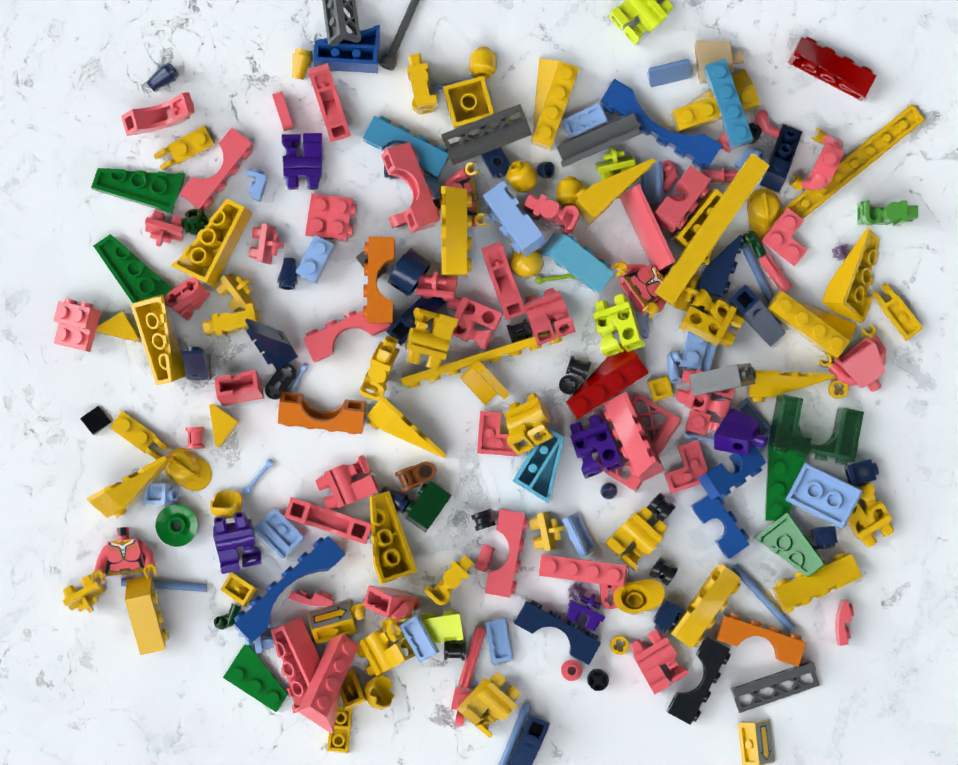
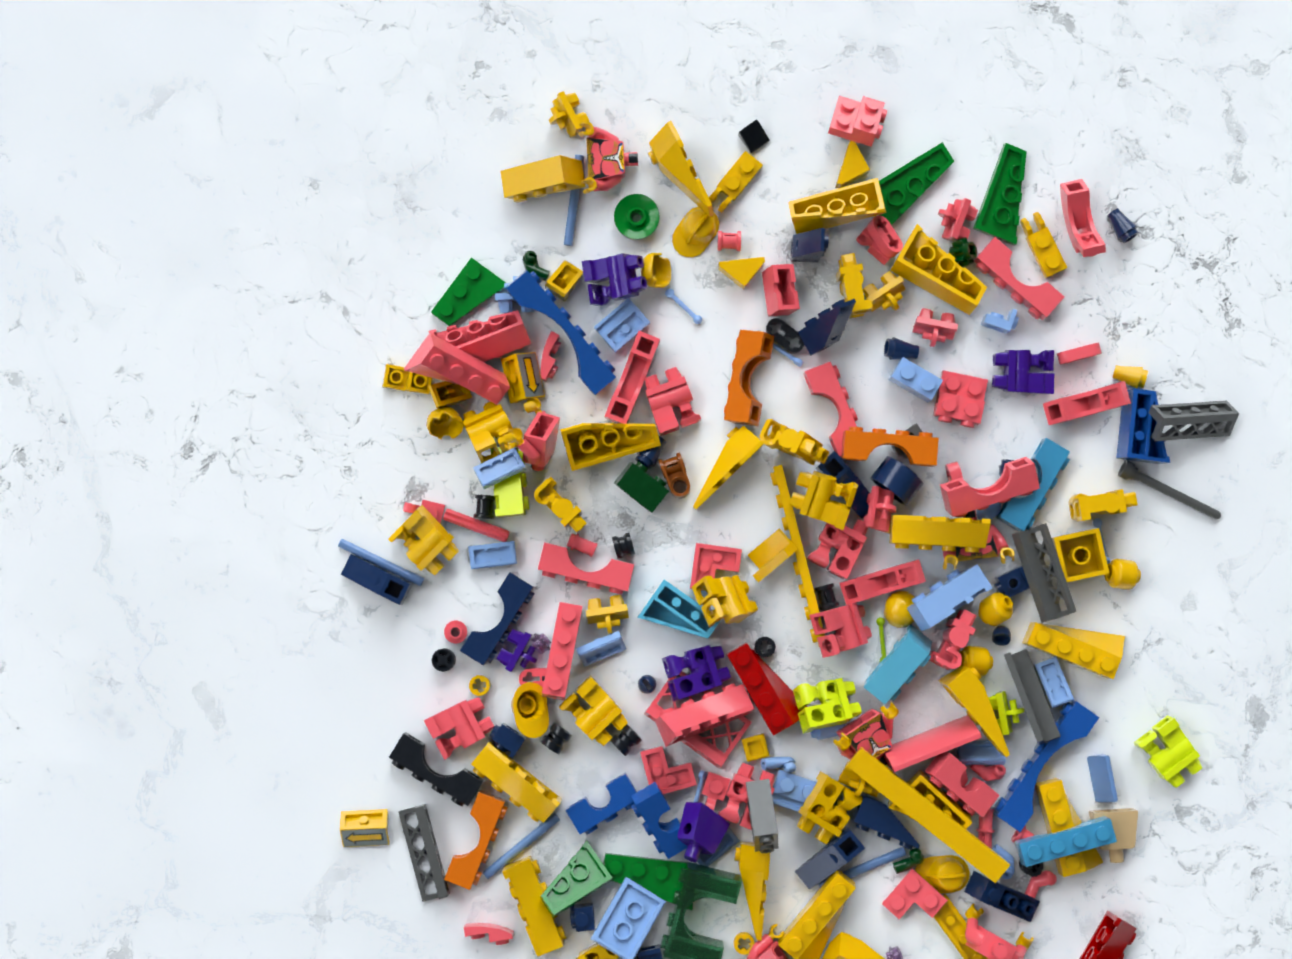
camera: 90 degrees right, 0 degrees up
(161, 494) = (670, 202): light blue bracket -> none
(578, 367) = (782, 659): black bush -> none
(775, 273) = (875, 881): coral axle -> none

